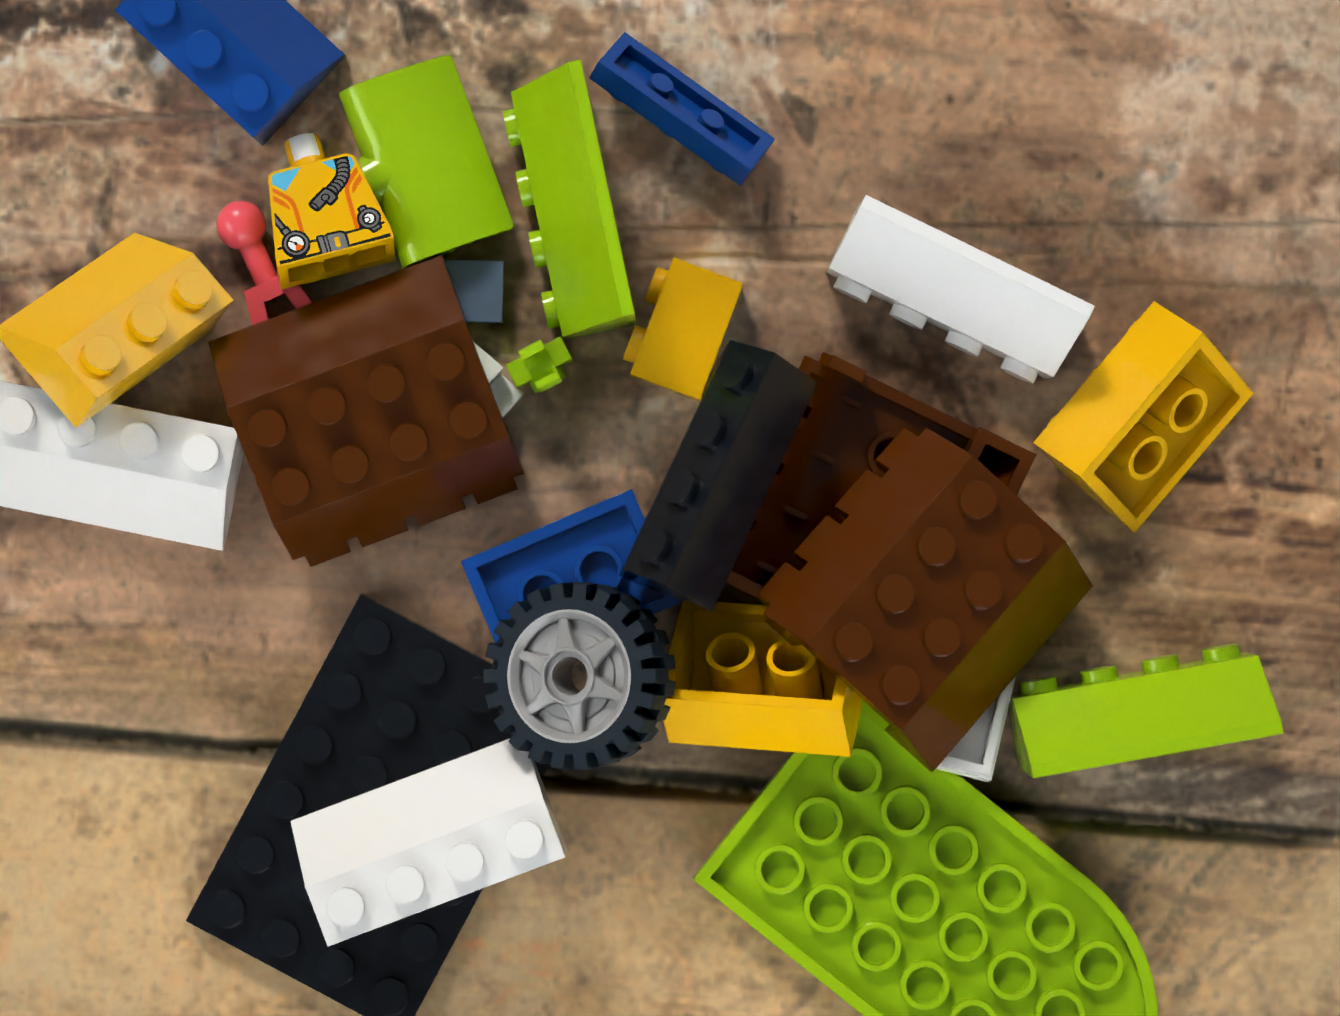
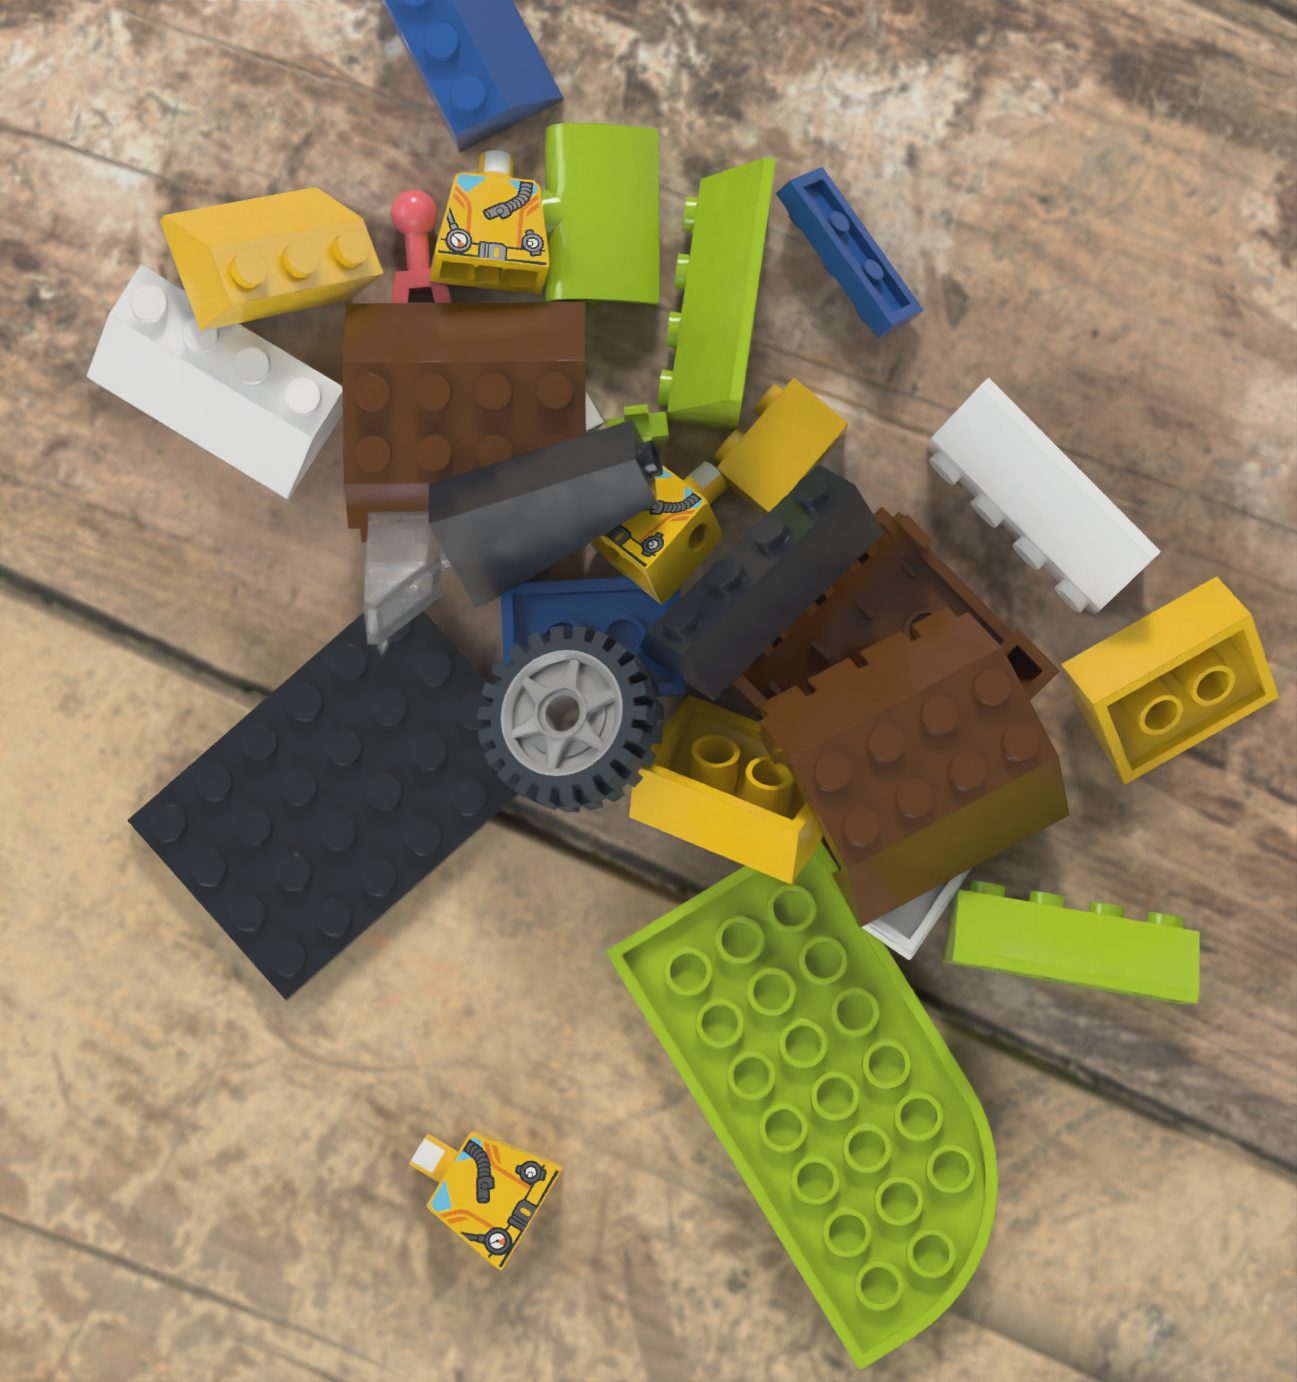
camera: 20 degrees right, 5 degrees down
(361, 584) = (400, 571): none -> clear slope
(426, 840) = (375, 821): white slope -> none
(474, 479) = (540, 506): none -> black slope
(479, 289) = (607, 348): sand blue tile -> none
(592, 450) = (669, 538): none -> yellow torso

